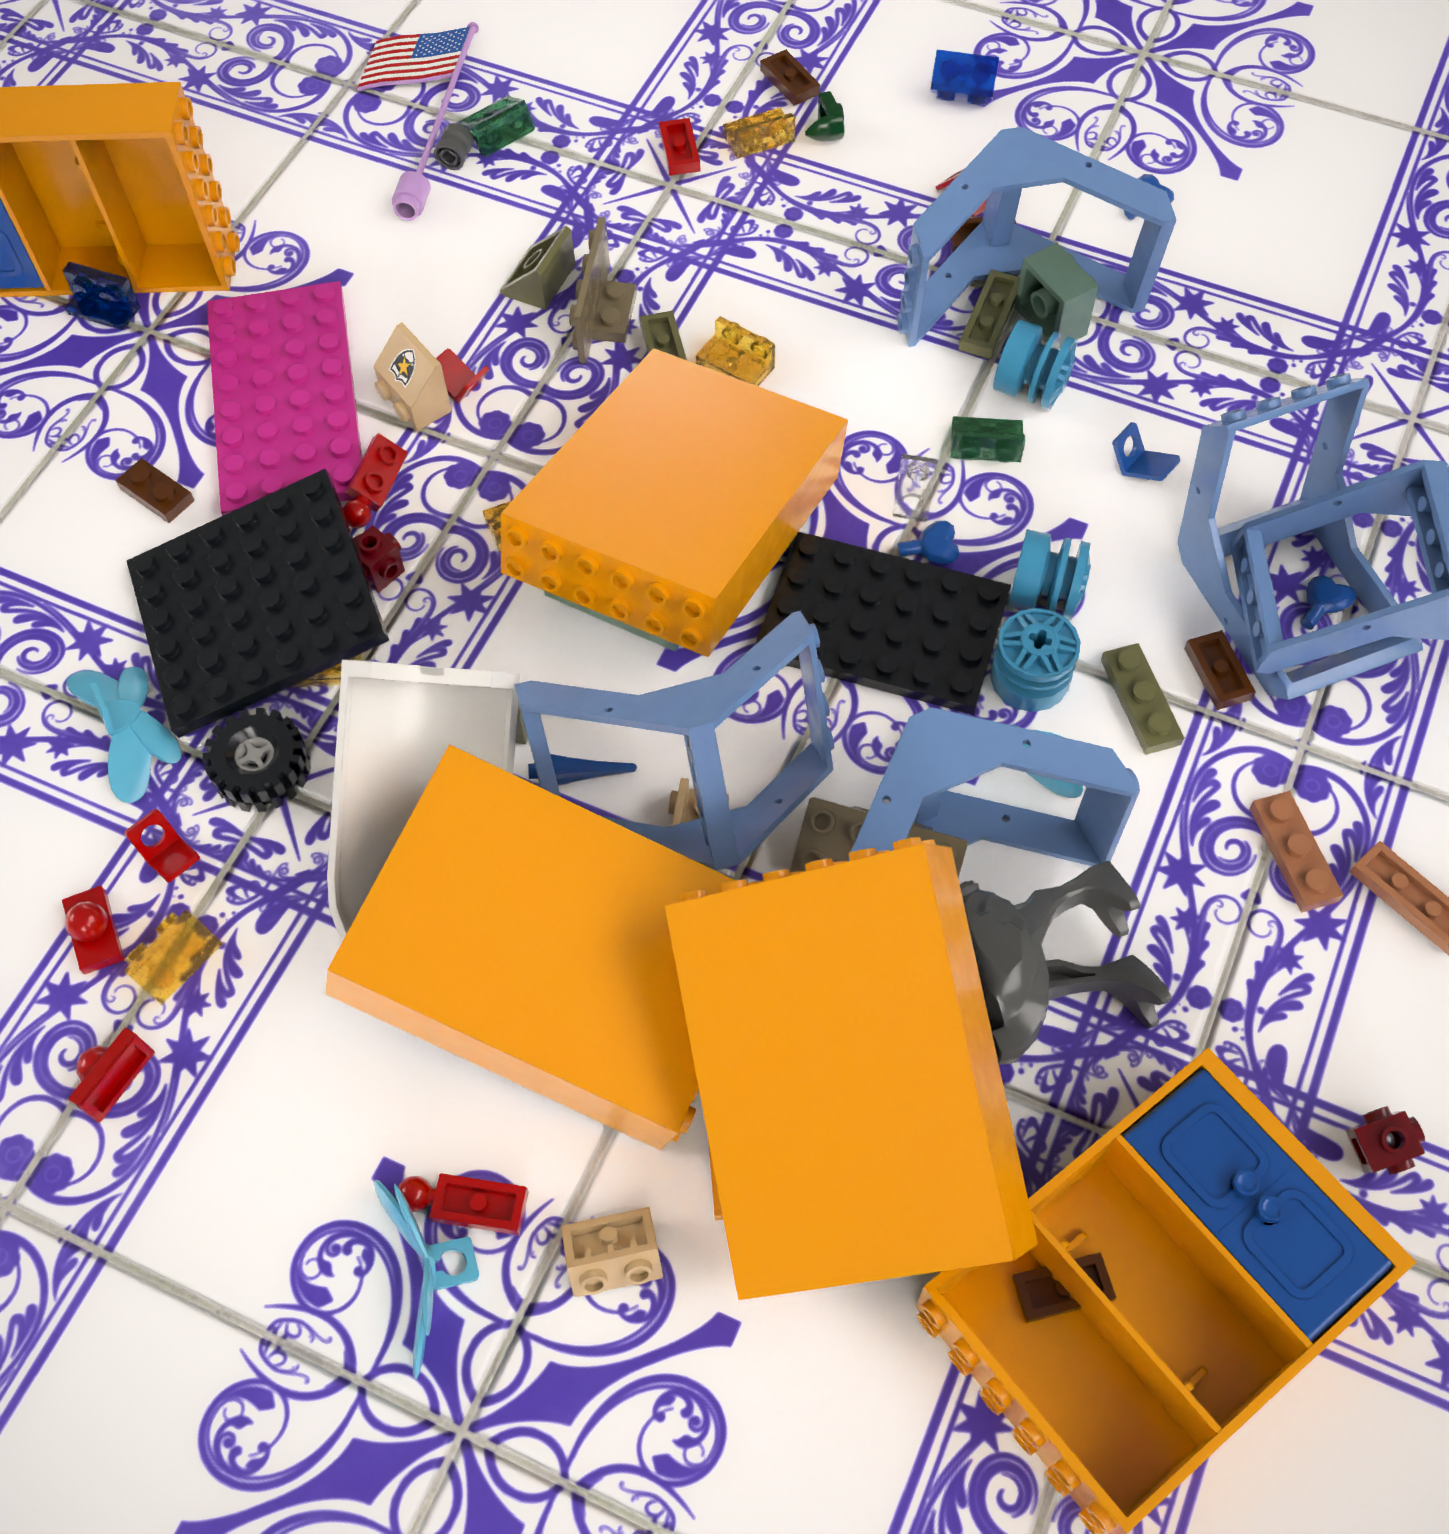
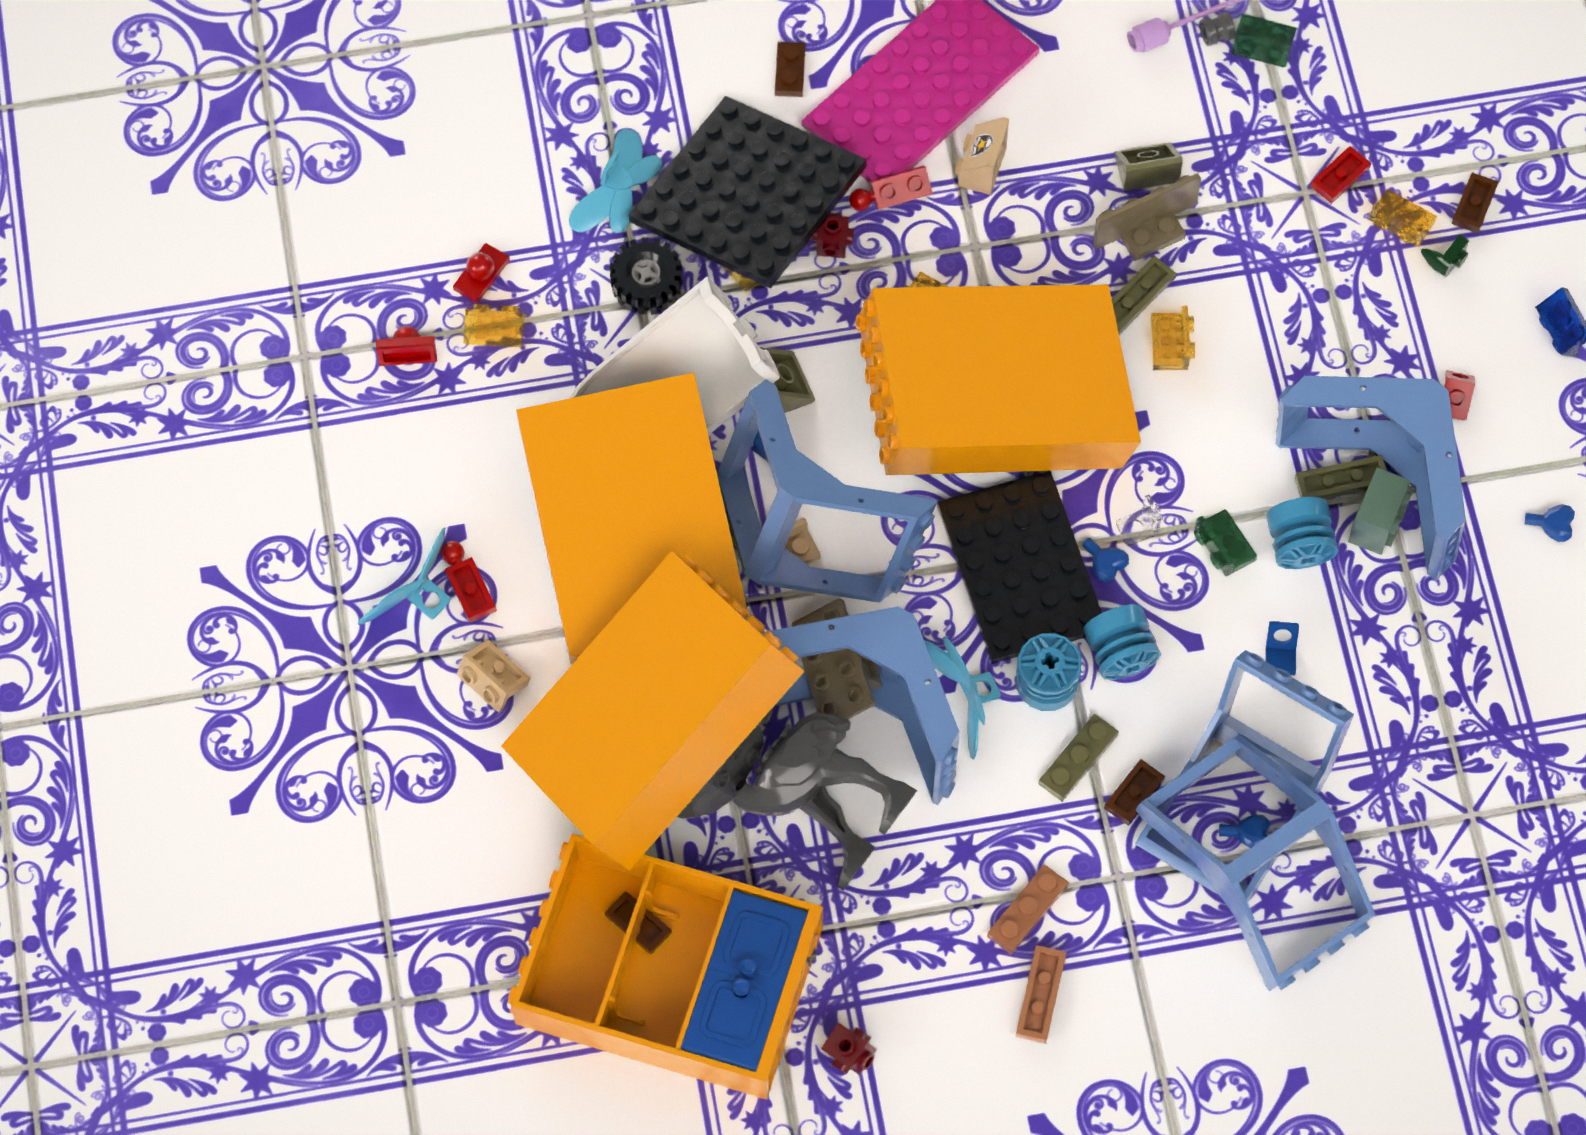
camera: 55 degrees right, 5 degrees up
(168, 856) = (554, 276): red bracket -> none
(458, 376) = (1015, 175): red bracket -> none

